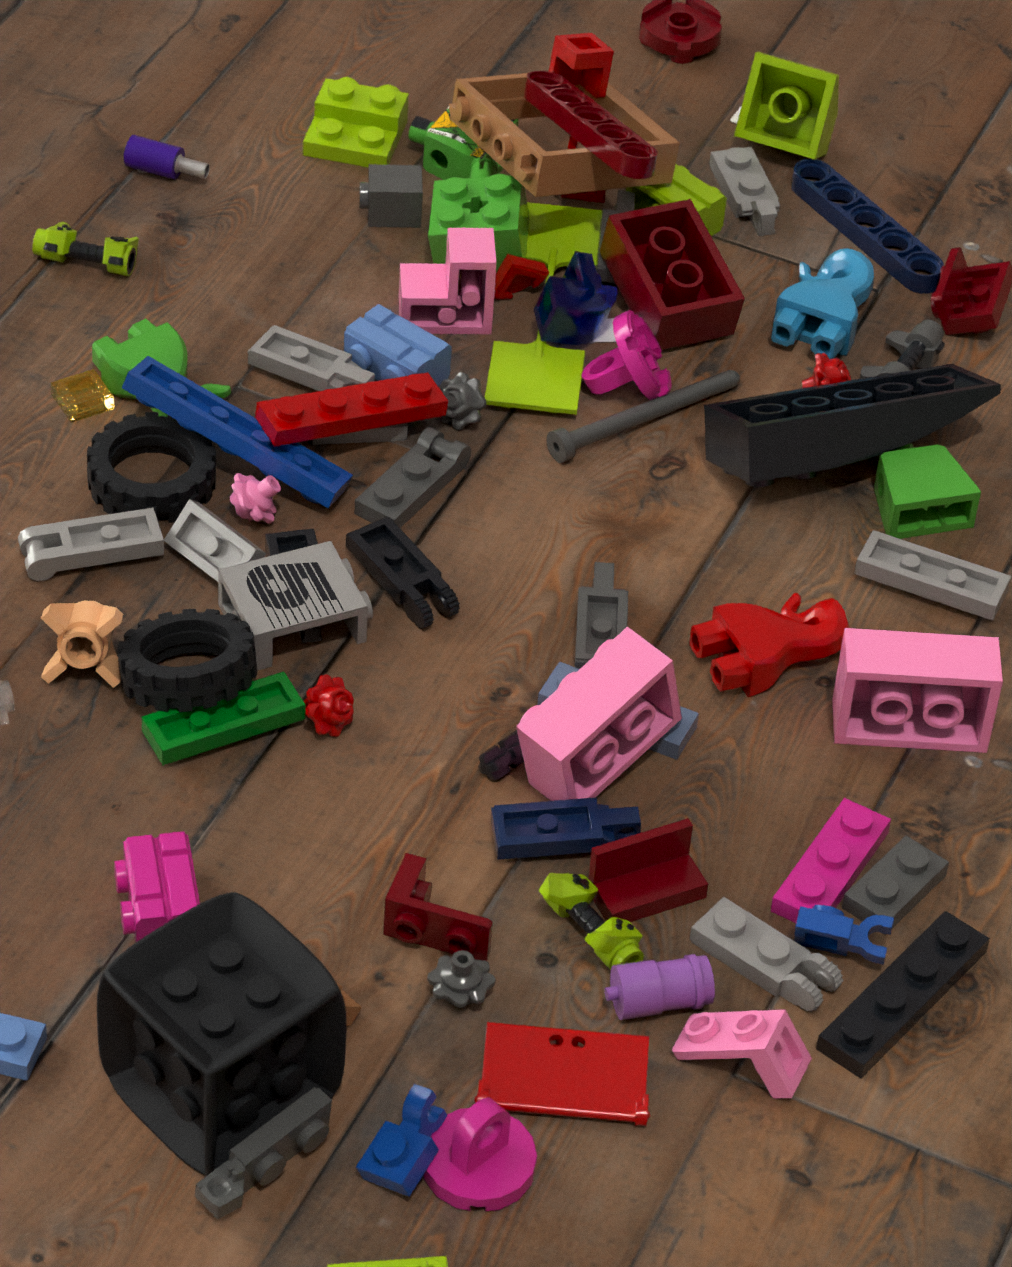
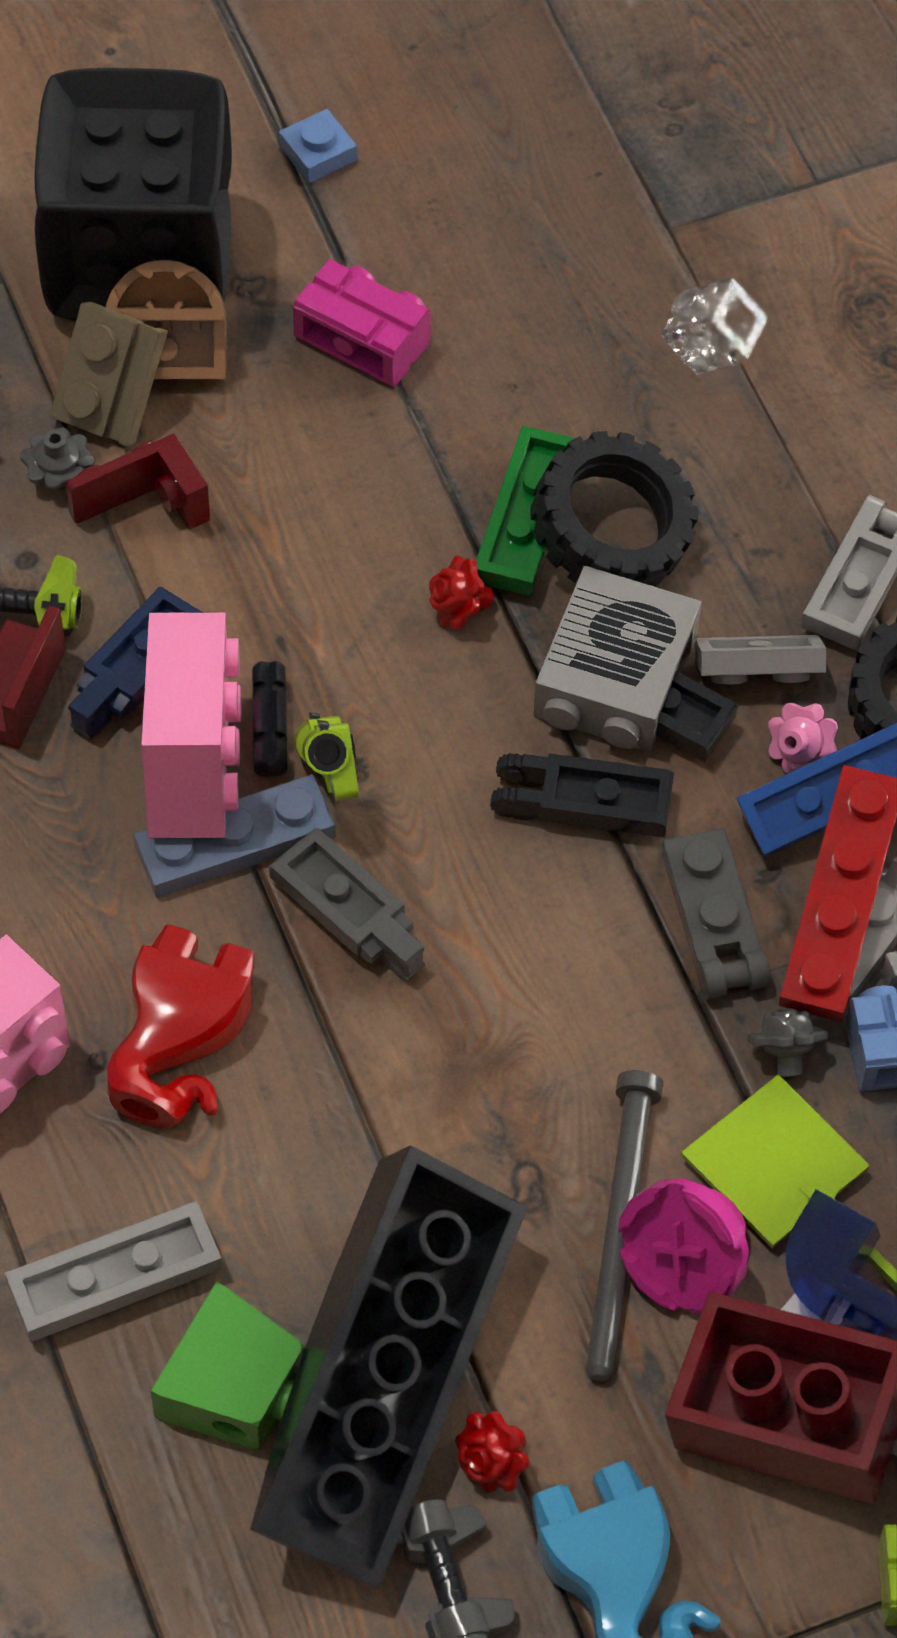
camera: 135 degrees right, 15 degrees up
(83, 639) = (727, 461): light nougat brick -> none
(265, 1152) = (23, 212): dark grey hinge -> none
(373, 977) = (108, 373): none -> dark tan plate
(515, 691) = (330, 752): none -> lime piece

